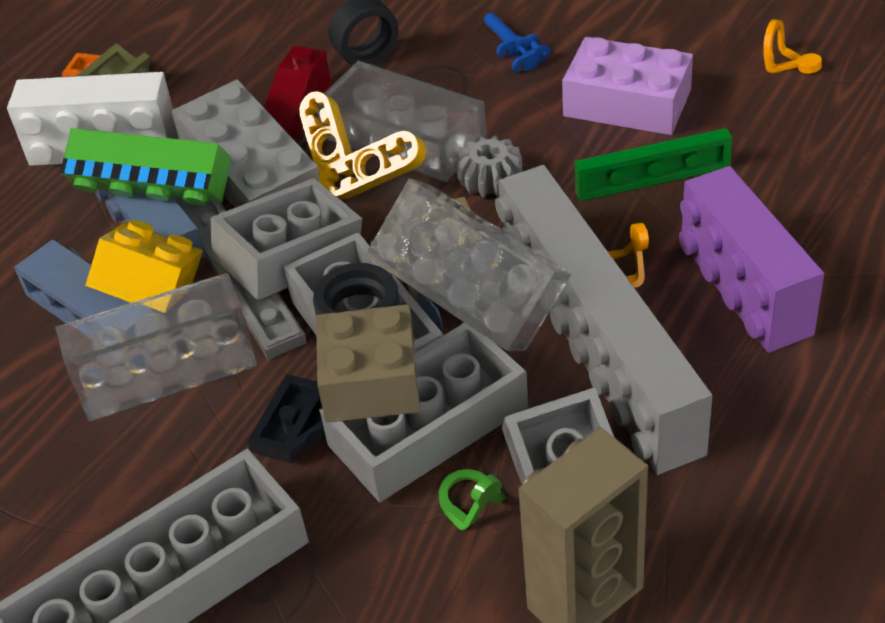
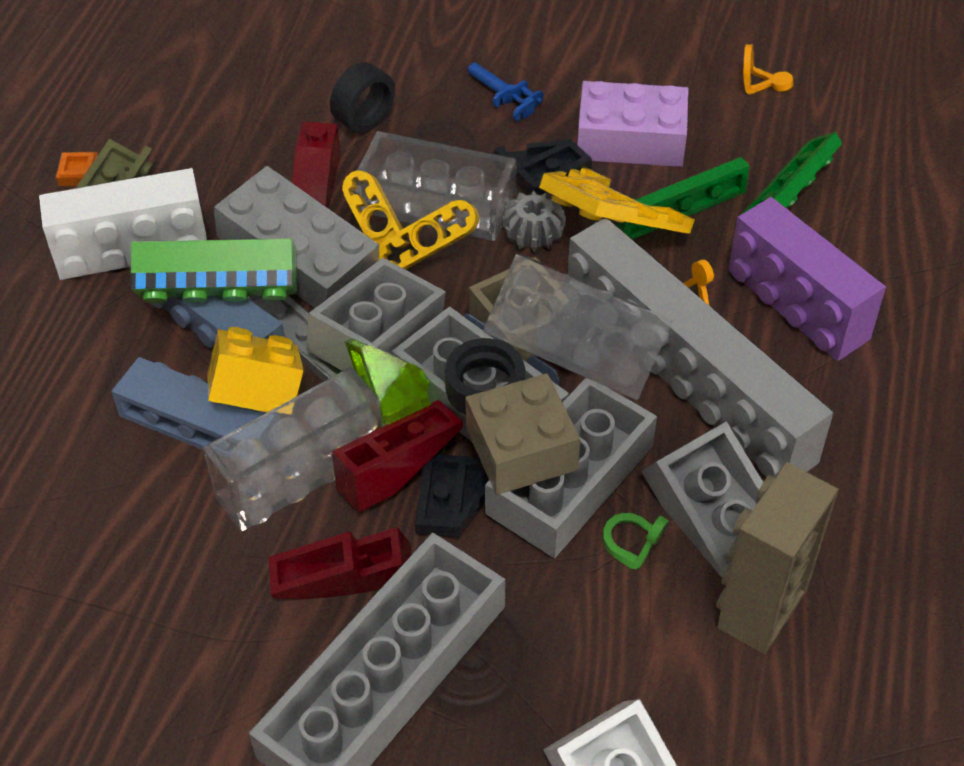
camera: 20 degrees left, 5 degrees up
(153, 466) = (338, 565): none -> dark red slope
(245, 370) = (390, 456): none -> dark red slope
(265, 293) = (394, 381): none -> clear neon green slope
(525, 115) = (545, 158): none -> black wing
(562, 150) = (596, 200): none -> yellow wing
(792, 153) = (800, 170): none -> green plate

